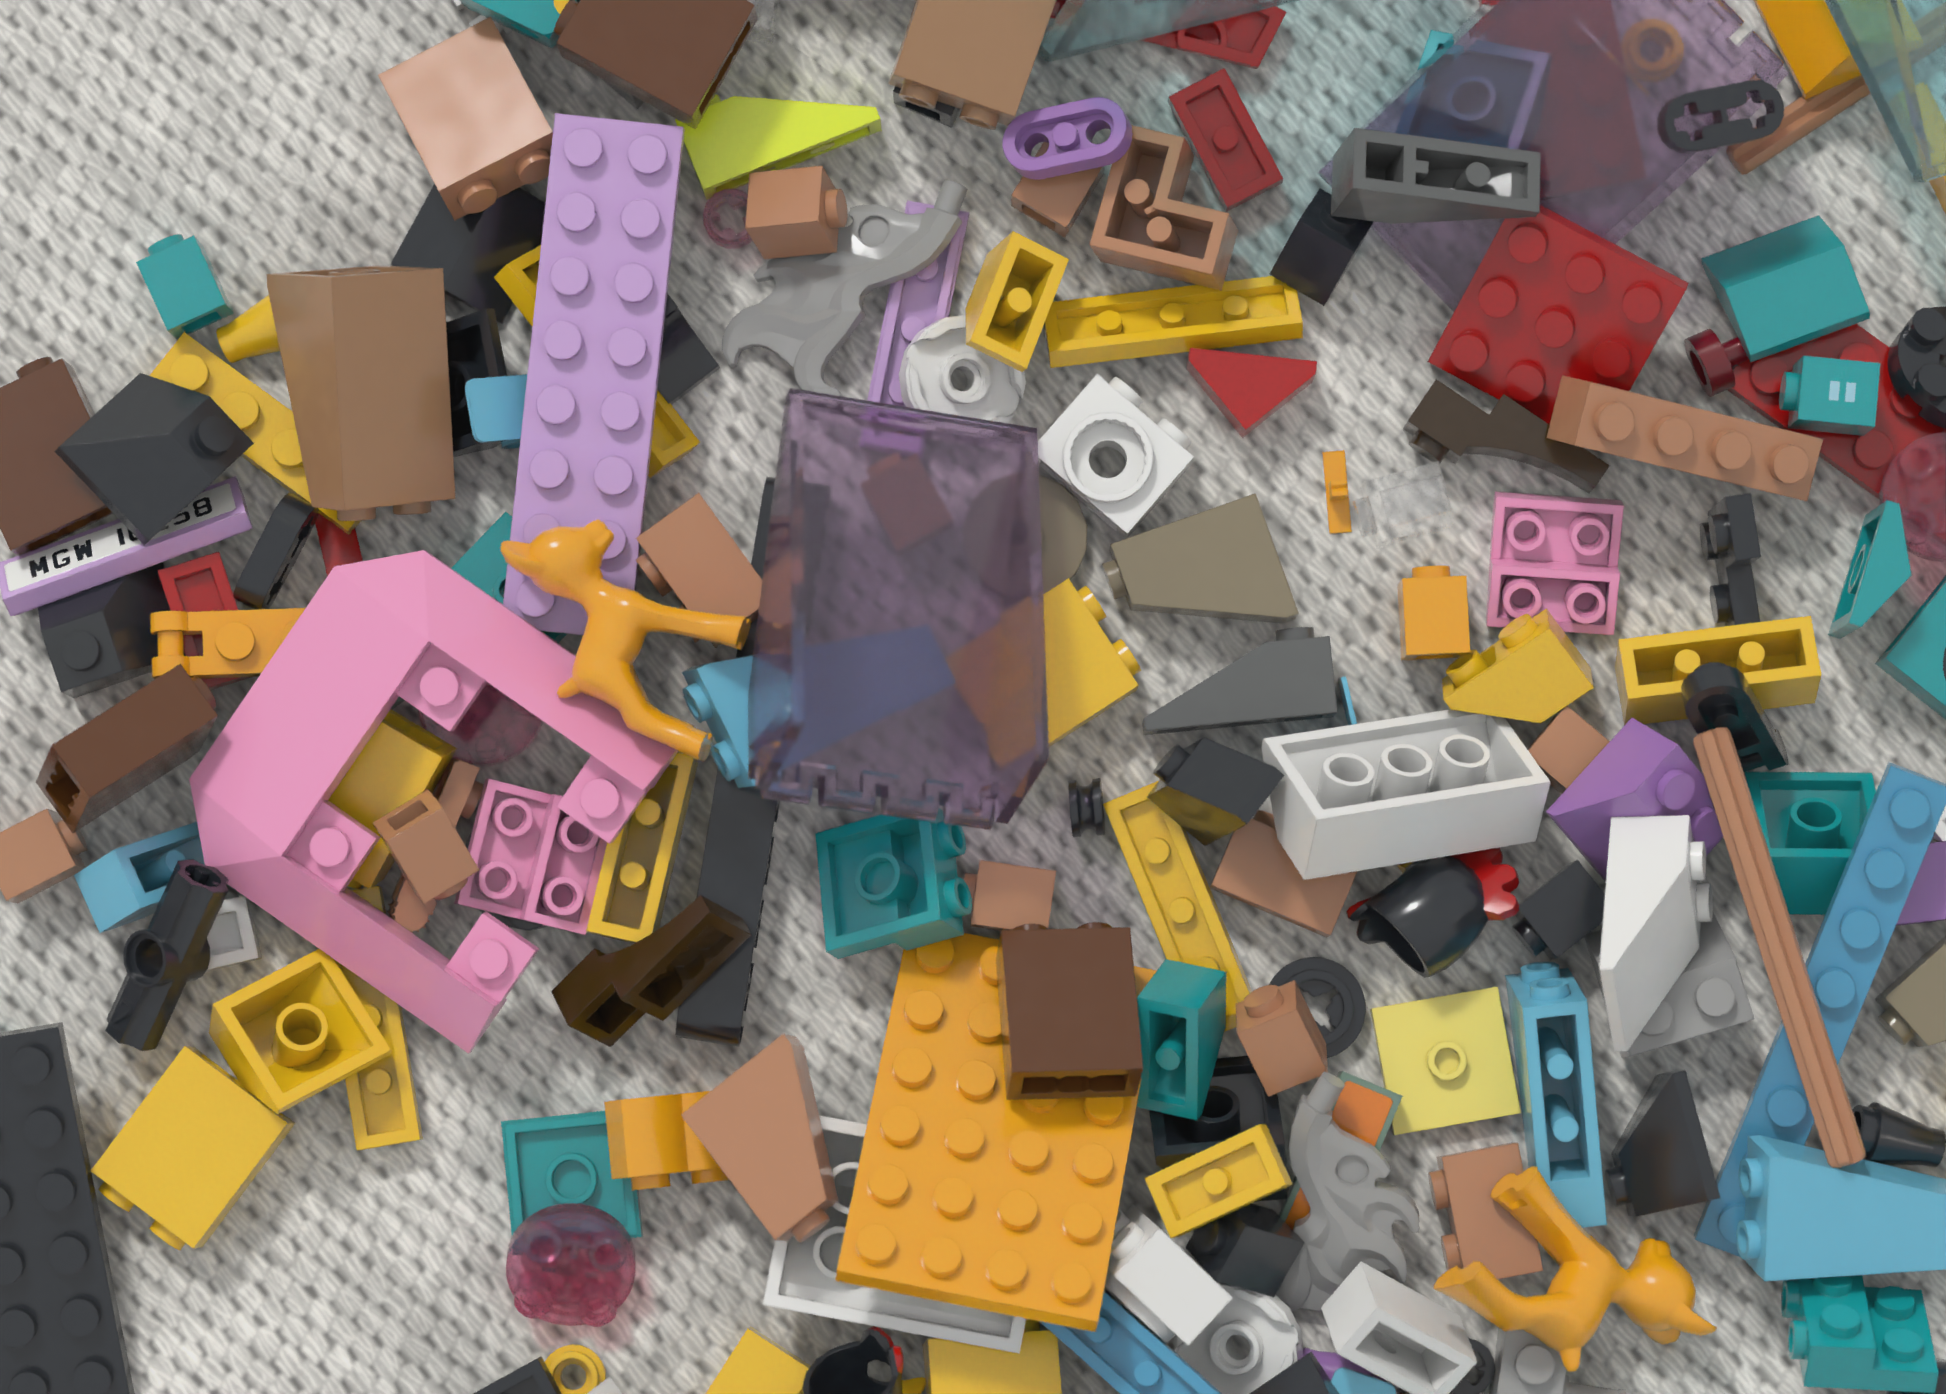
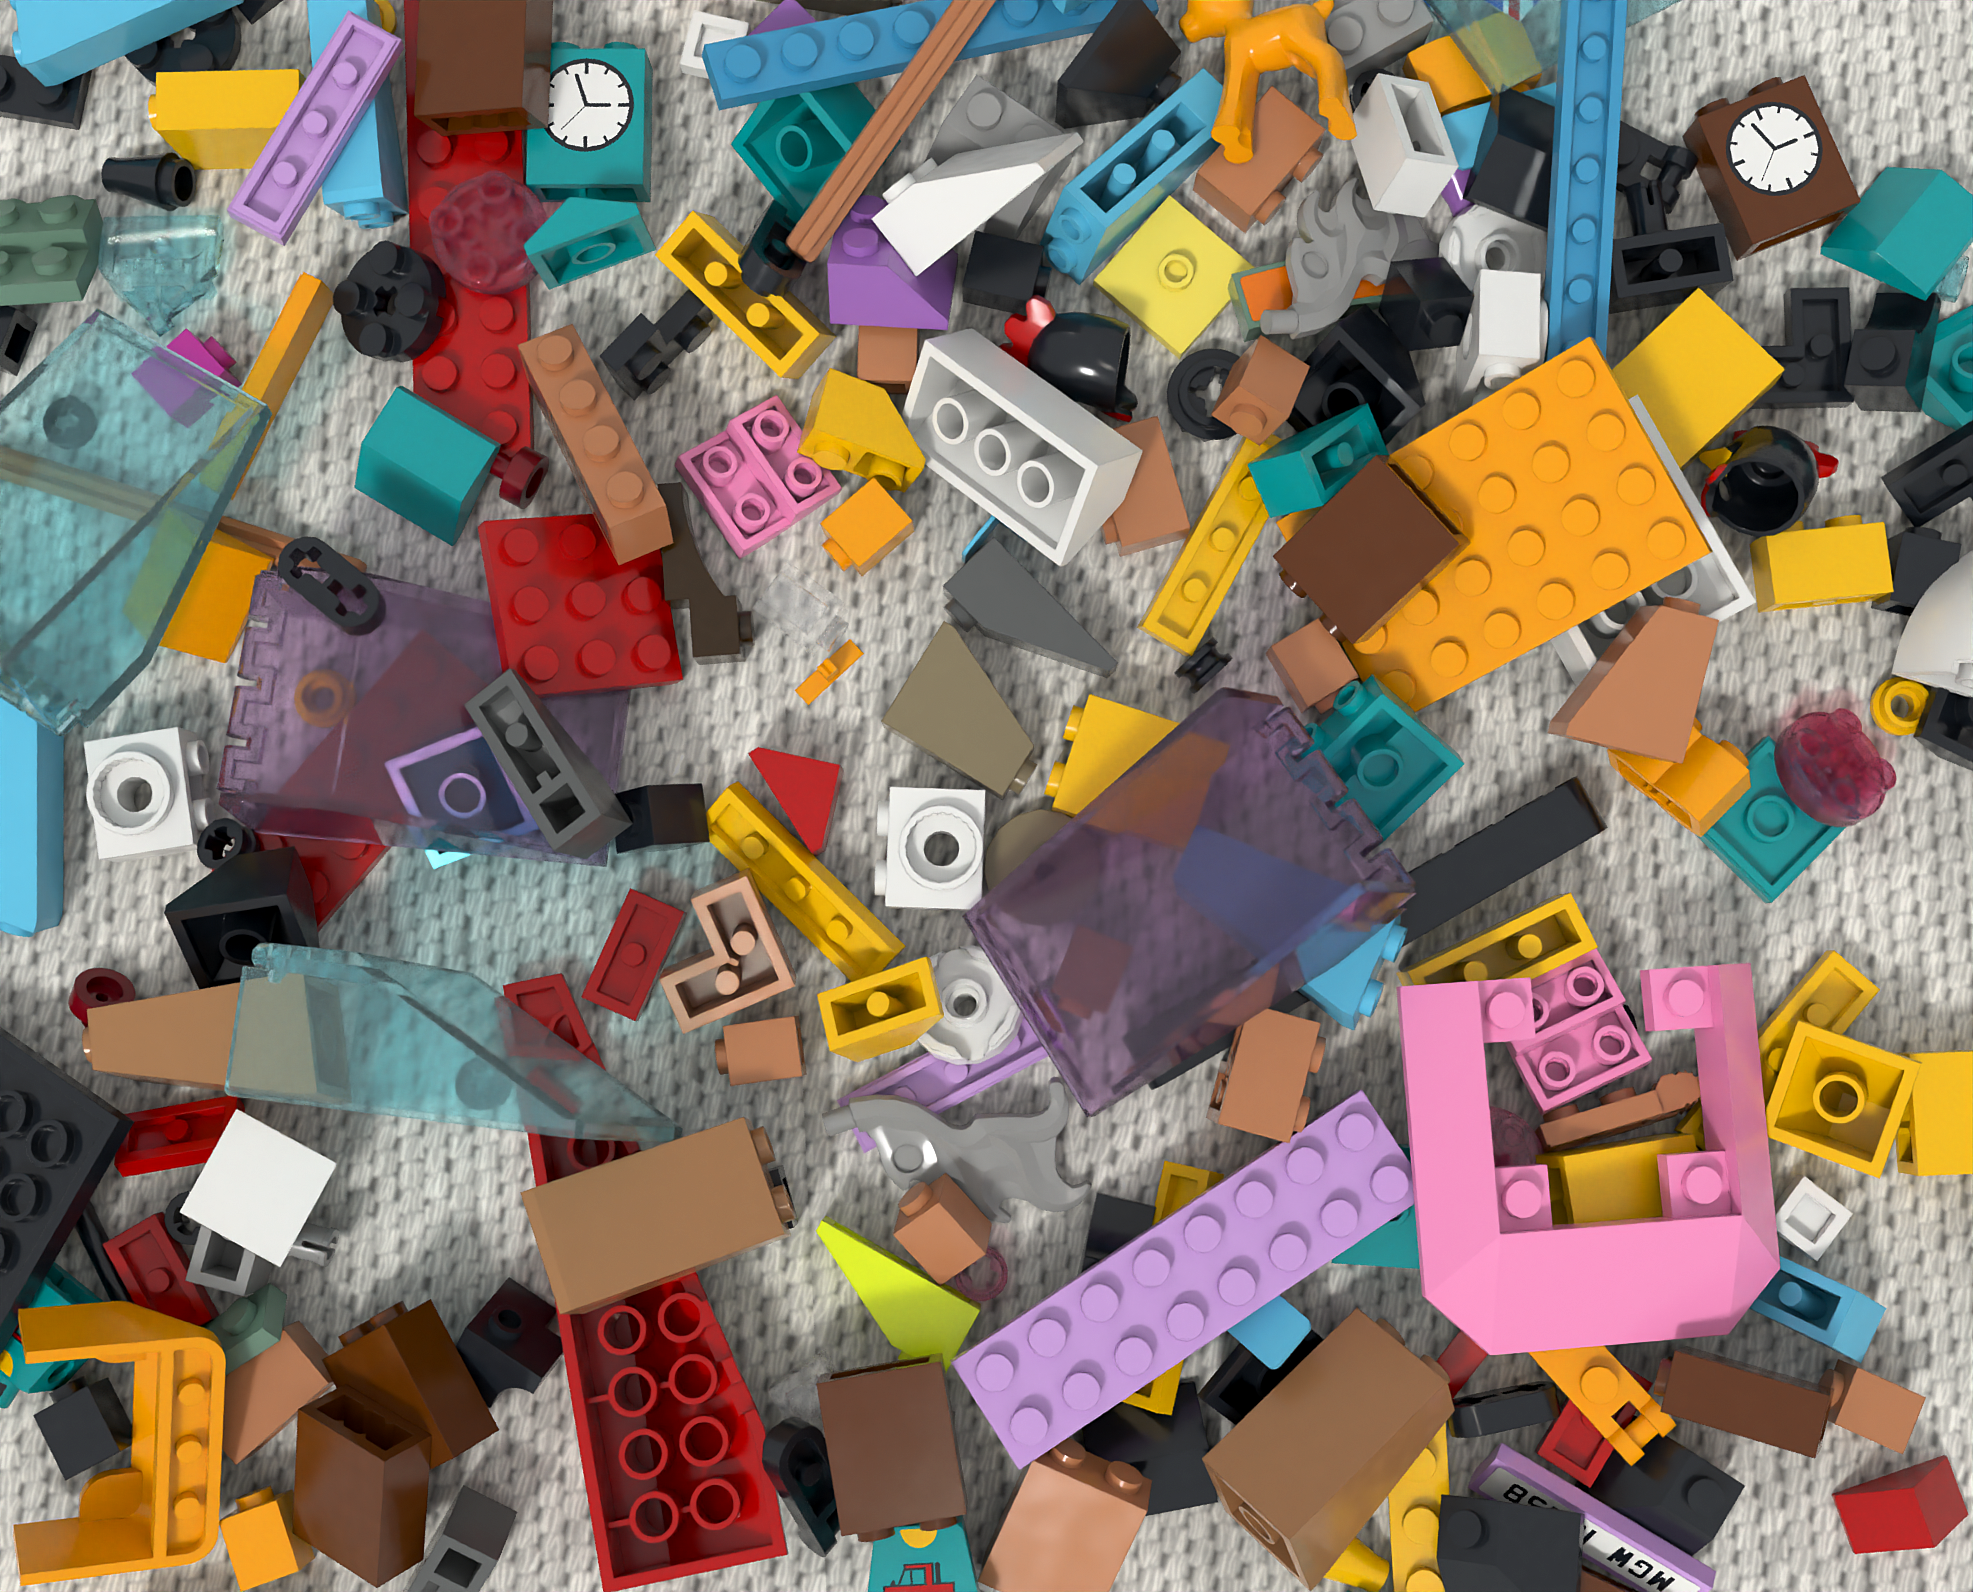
camera: 125 degrees left, 0 degrees up
(167, 955) = (1865, 1244): black piece -> none
(427, 847) = (1639, 1113): nougat brick -> none
(569, 566) = (1365, 1103): light orange animal -> none
(650, 976) = (1621, 896): dark brown slope -> none
(1070, 134) = (722, 1067): medium lavender plate -> none
(1212, 788) = (1123, 575): black slope -> none
(1218, 1181) = (1405, 346): yellow plate -> none
(1831, 395) = (480, 365): teal brick -> none

